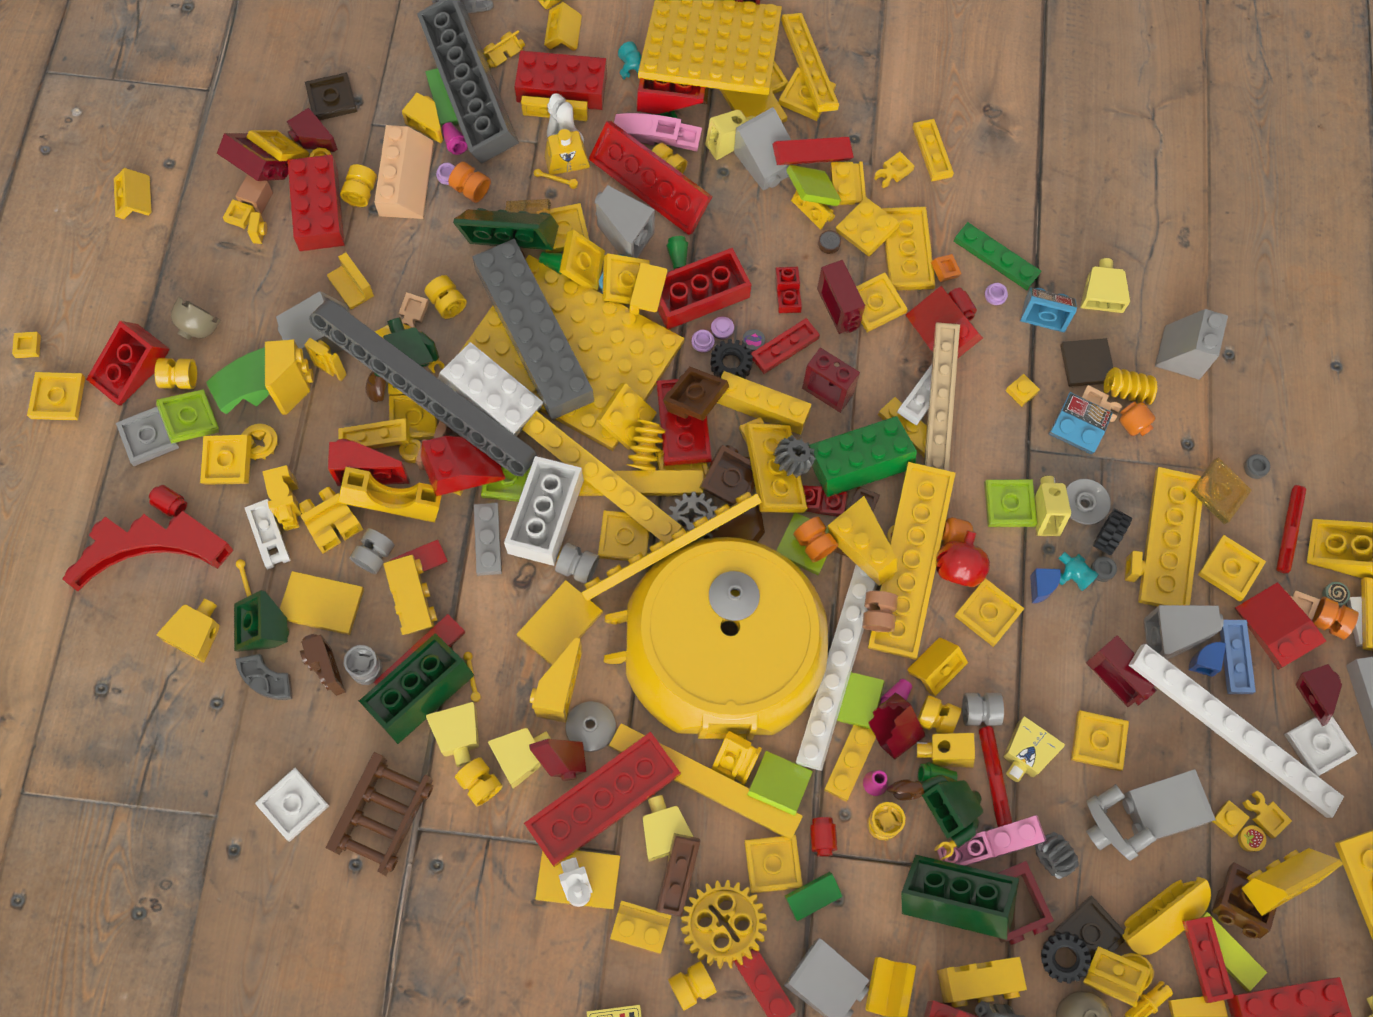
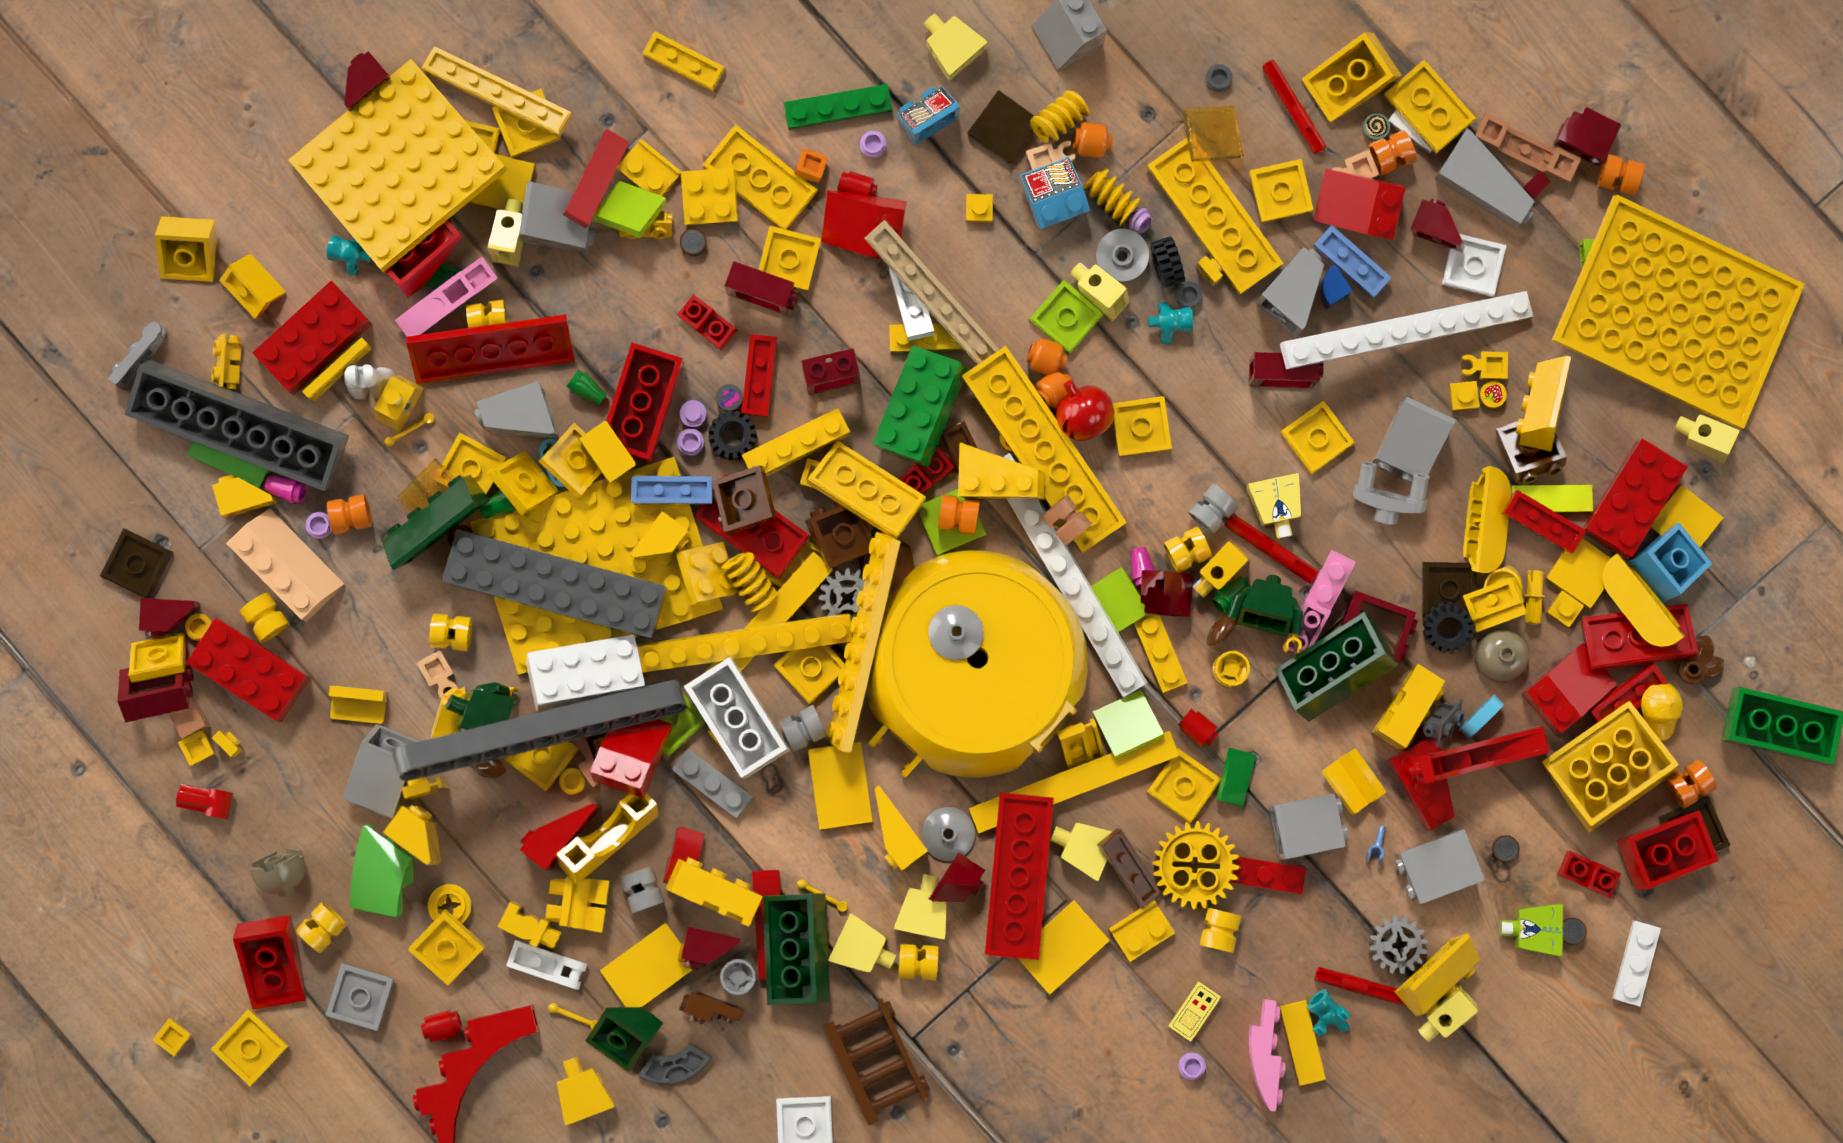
camera: 50 degrees left, 15 degrees up
(131, 193) = (87, 828): yellow panel -> none
(187, 416) = (372, 948): lime tile -> none
(208, 246) = (210, 802): none -> red piece
(364, 624) = (703, 947): none -> dark red slope
(378, 434) = (534, 803): yellow plate -> none
(575, 883) = (1069, 954): white hips -> none
(621, 367) = (661, 539): none -> yellow slope
(660, 349) = (671, 490): none -> medium blue plate
(794, 456) = (872, 476): dark grey gear -> none
(871, 786) = (1186, 649): dark pink cone -> none
(894, 168) = (674, 113): yellow plate -> none
(938, 665) = (1146, 509): yellow panel -> none
(973, 509) = (1046, 356): none -> orange head
(1044, 583) = (1158, 359): blue brick -> none
(1057, 855) = (1373, 561): dark grey gear -> none
(1115, 461) = (1111, 195): none -> yellow piece
(1119, 494) = (1140, 220): none -> lavender plate

